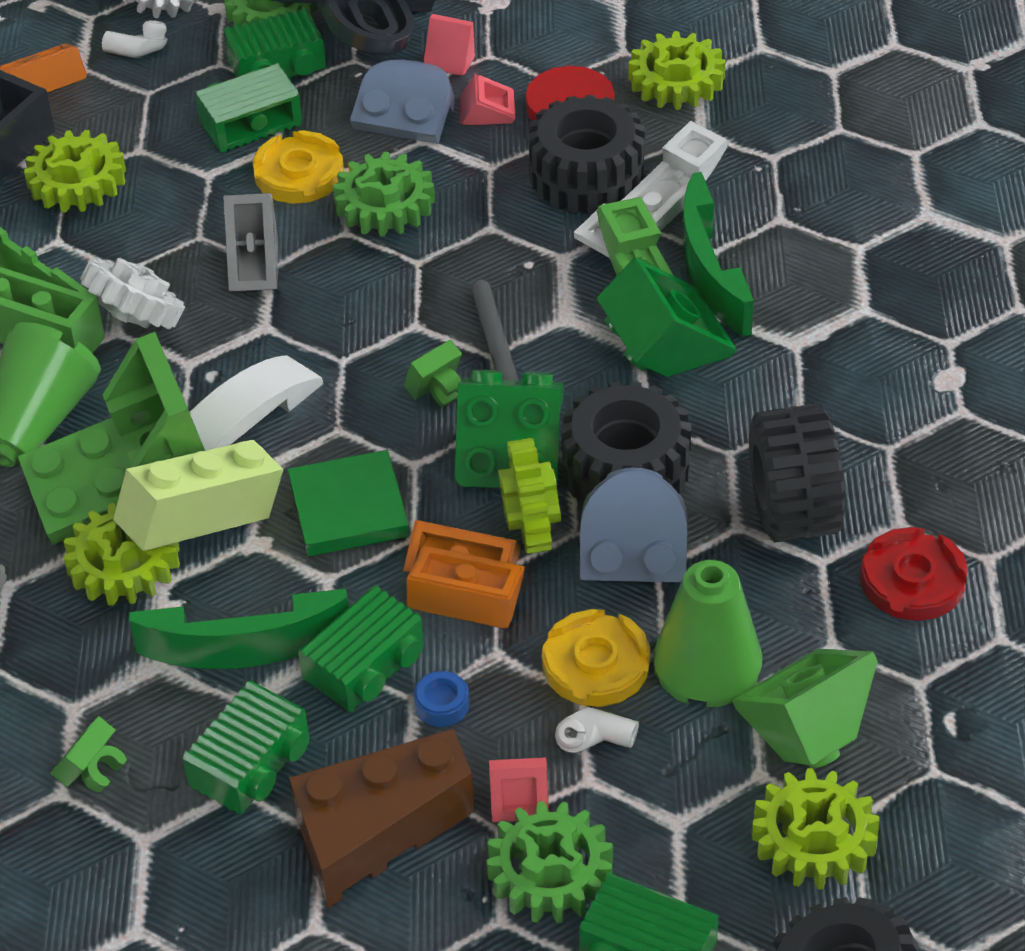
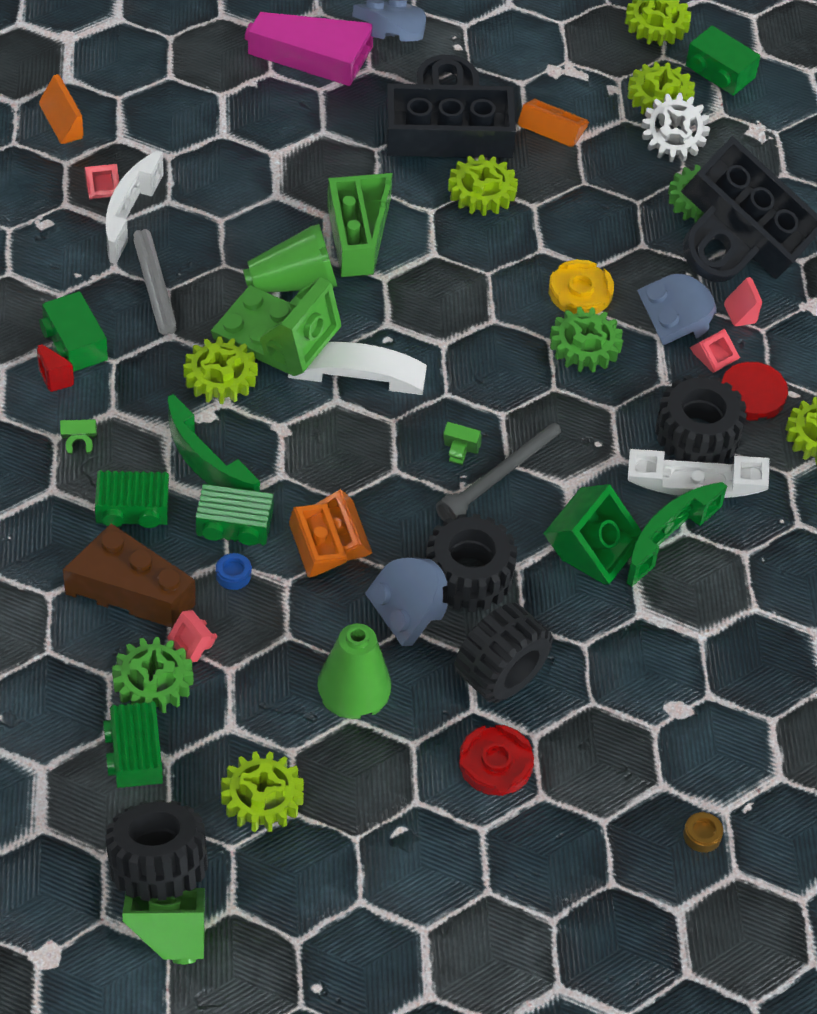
camera: 50 degrees right, 5 degrees up
(132, 293) = (400, 264): white gear -> none
(136, 46) = (613, 154): white arm -> none
(197, 494) = (273, 377): yellowish green brick -> none
(248, 107) = (602, 235): green brick -> none
(251, 242) = (491, 299): light grey slope -> none
(281, 39) = (661, 218): green brick -> none
(348, 503) = (338, 453): green tile -> none
(501, 412) = (441, 490): green bracket -> none
(529, 496) = (389, 530): lime gear -> none
(592, 727) = (262, 651): white arm -> none
(596, 658) = (311, 628): yellow tile -> none
(630, 233) = (642, 481): bright green slope -> none
(811, 705) = (345, 746): bright green slope -> none

